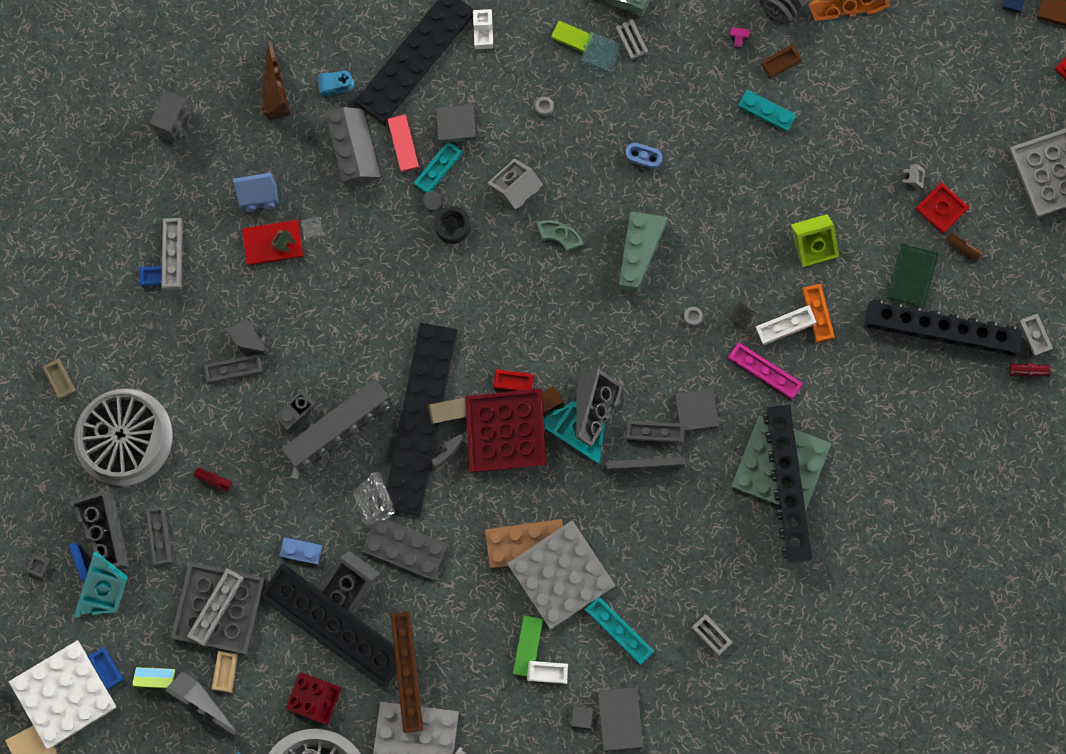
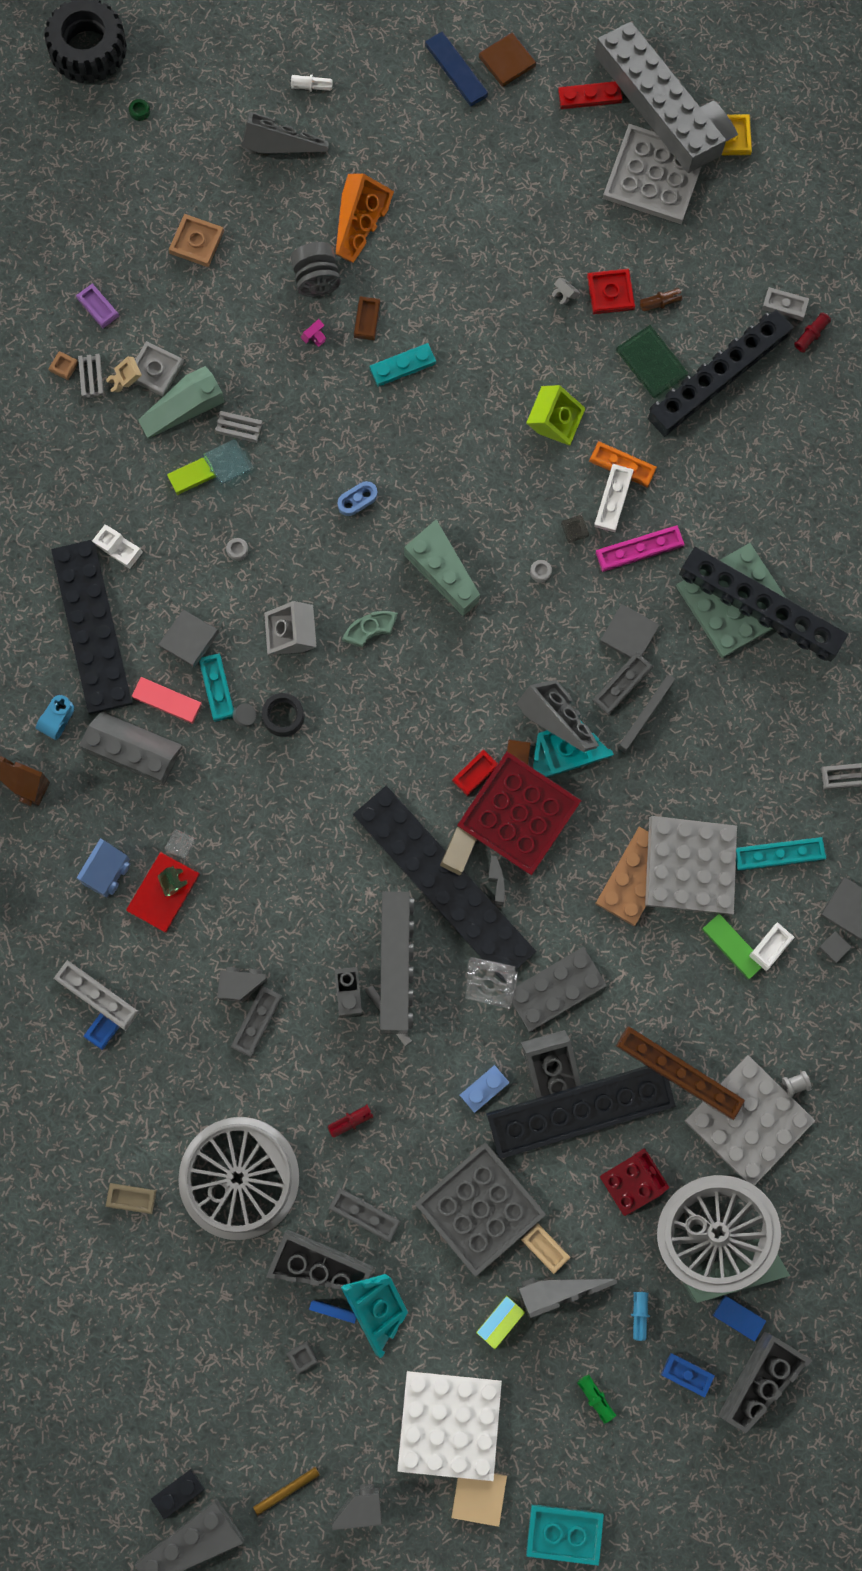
camera: 65 degrees left, 0 degrees up
(105, 668) = (454, 1363): blue tile -> none
(215, 607) = (479, 1210): light grey tile -> none

